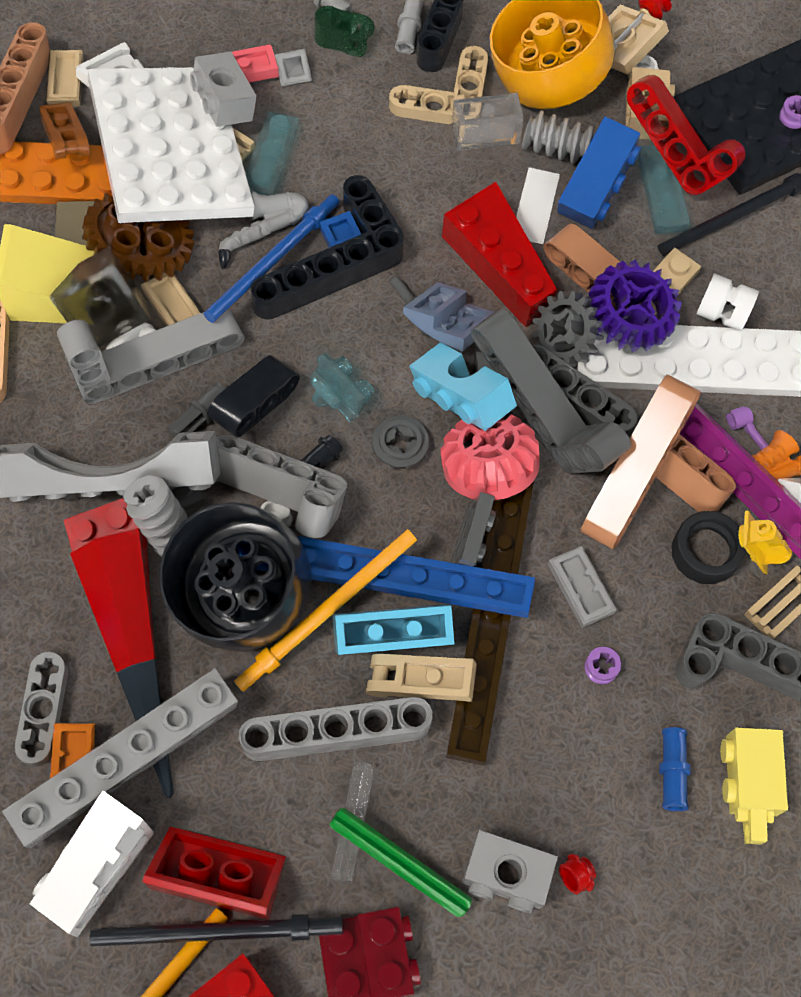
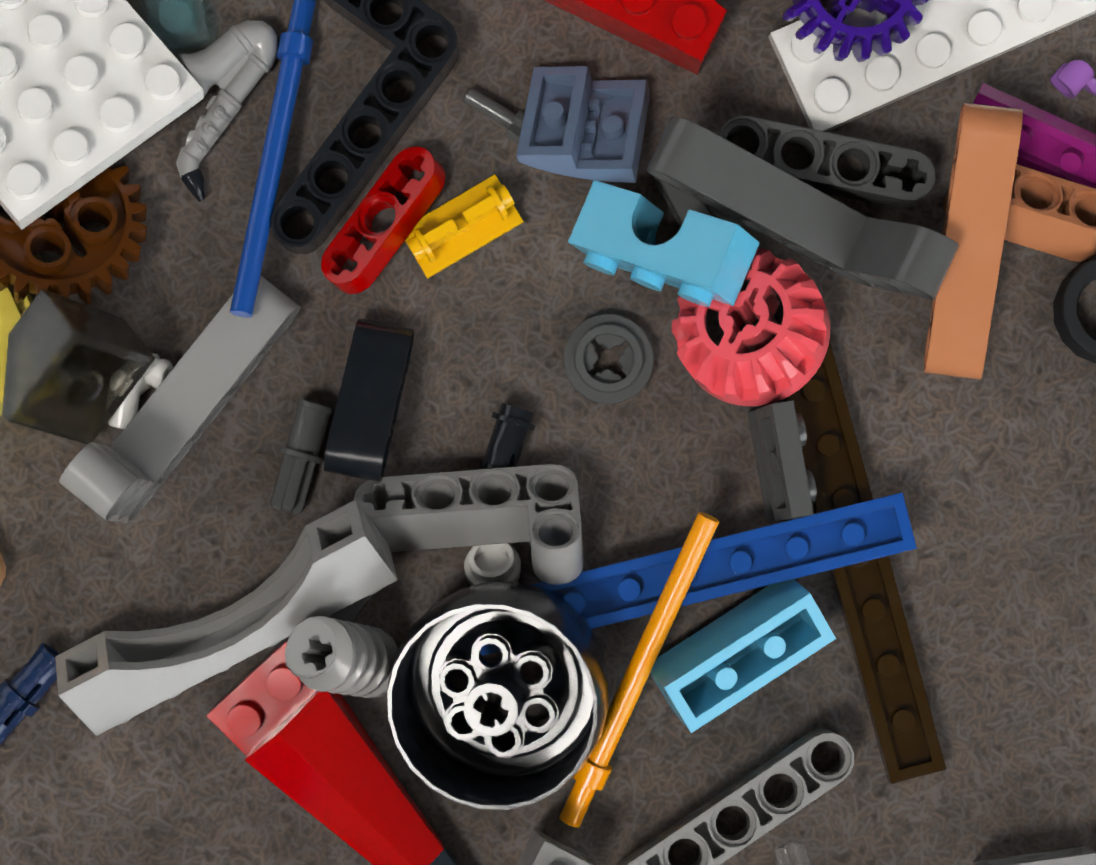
camera: 25 degrees left, 20 degrees up
(169, 299) = (164, 301): tan tile -> none
(296, 324) = (380, 197): none -> red beam
(337, 389) = (475, 324): clear light blue hips -> none
(339, 229) = (349, 56): blue plate -> none
(356, 340) = (463, 226): none -> yellow hinge
(422, 677) = (815, 698): tan plate -> none
(572, 327) = (770, 65): dark grey gear -> none
(581, 587) = (961, 455): light grey plate -> none
(611, 657) = (1053, 560): medium lavender bush -> none

